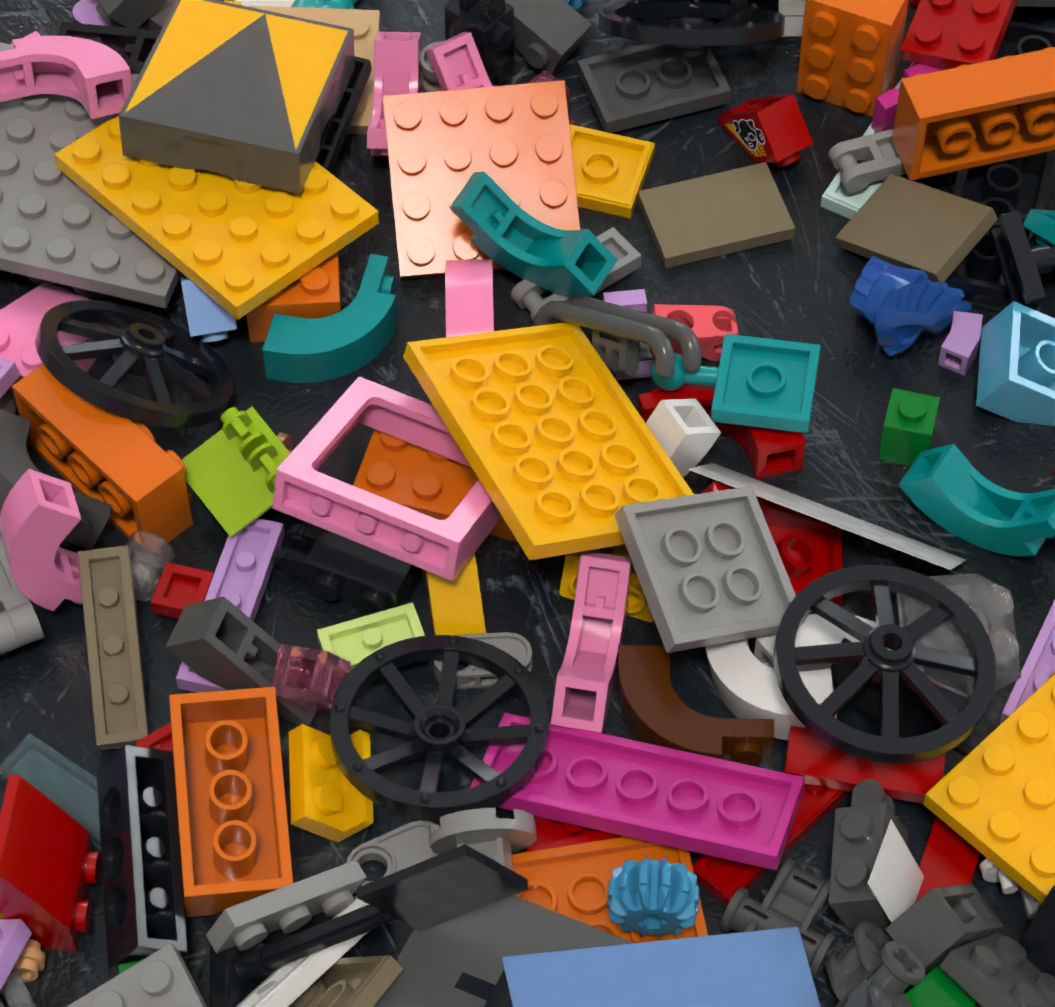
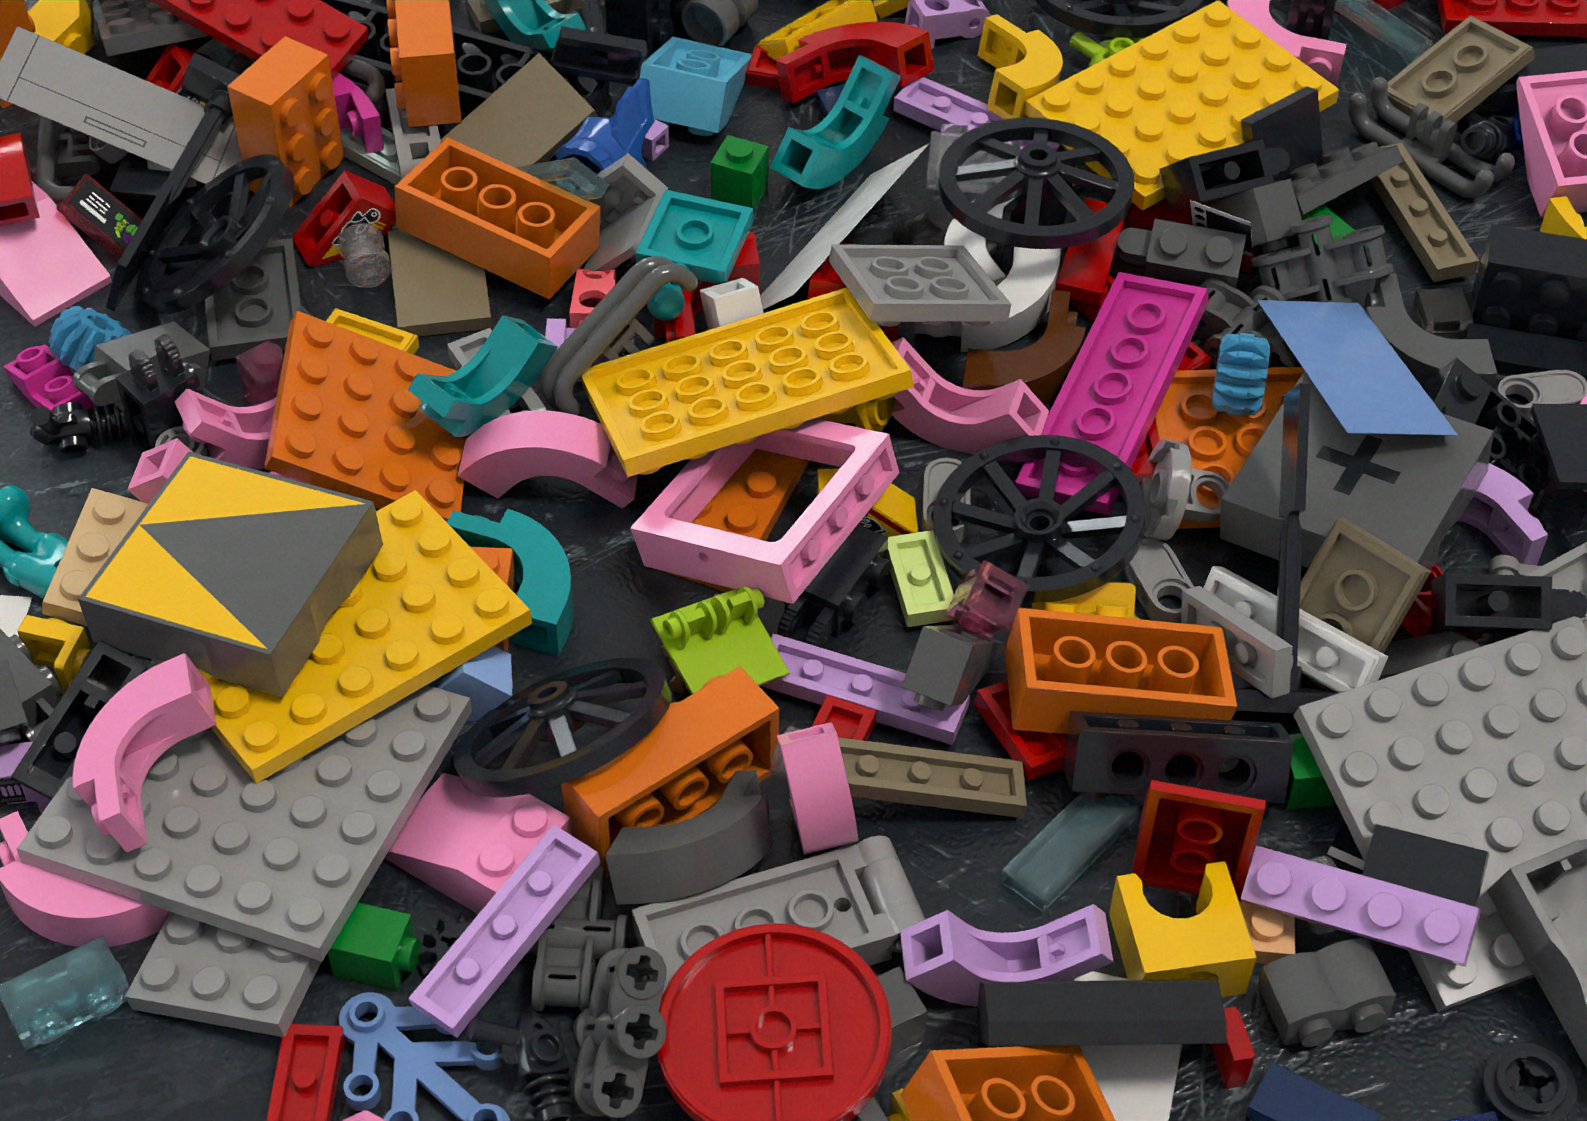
camera: 85 degrees left, 5 degrees down
(724, 148) = (364, 255): none -> clear wheel
(773, 229) = (497, 217): none -> orange brick
(822, 263) = (570, 176): none -> clear light blue tile
(830, 317) = (624, 212): none -> light grey bracket
(971, 869) = (1222, 173): none -> black hinge

